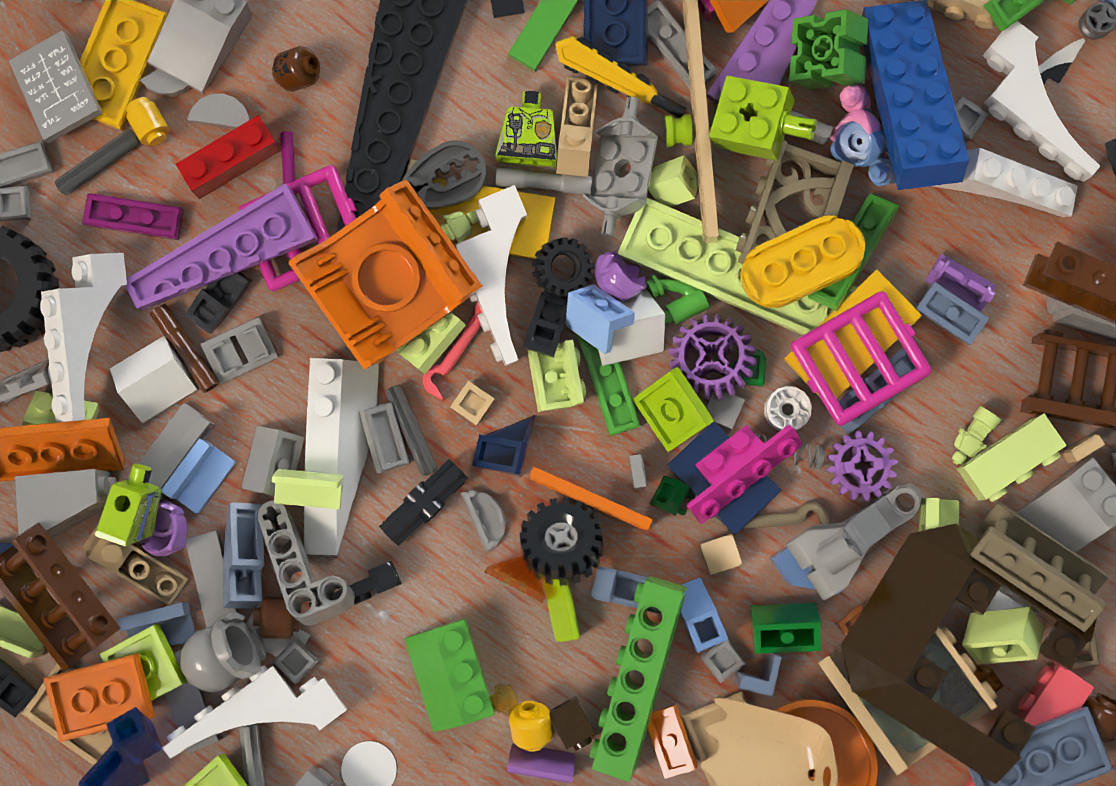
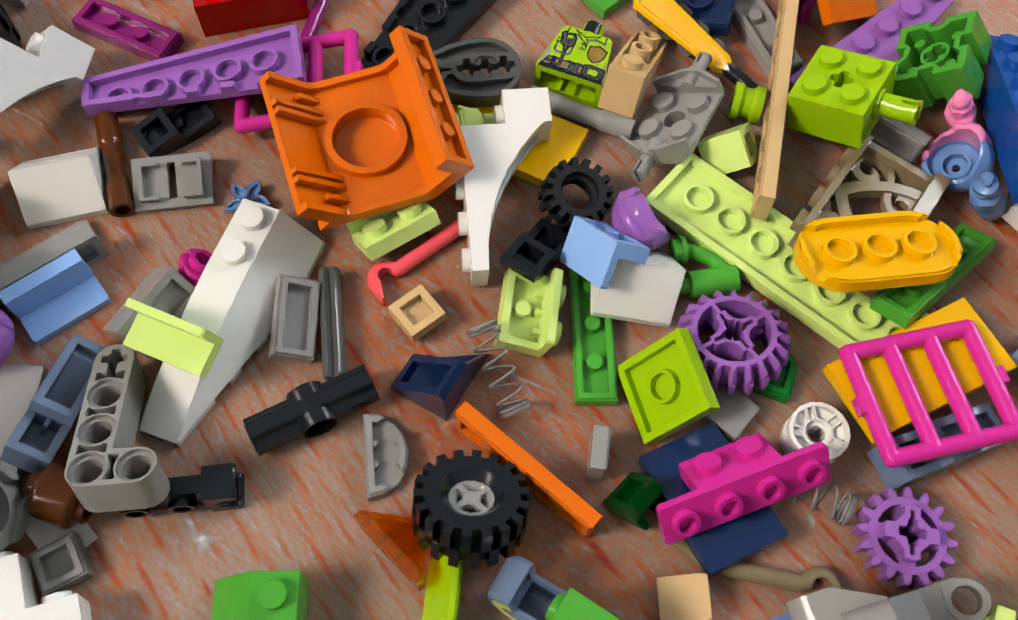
camera: 15 degrees right, 20 degrees down
(290, 423) = (193, 264): none -> dark pink plate
(303, 346) = (253, 192): none -> medium blue plant
(565, 451) = (519, 405): none -> light grey piece

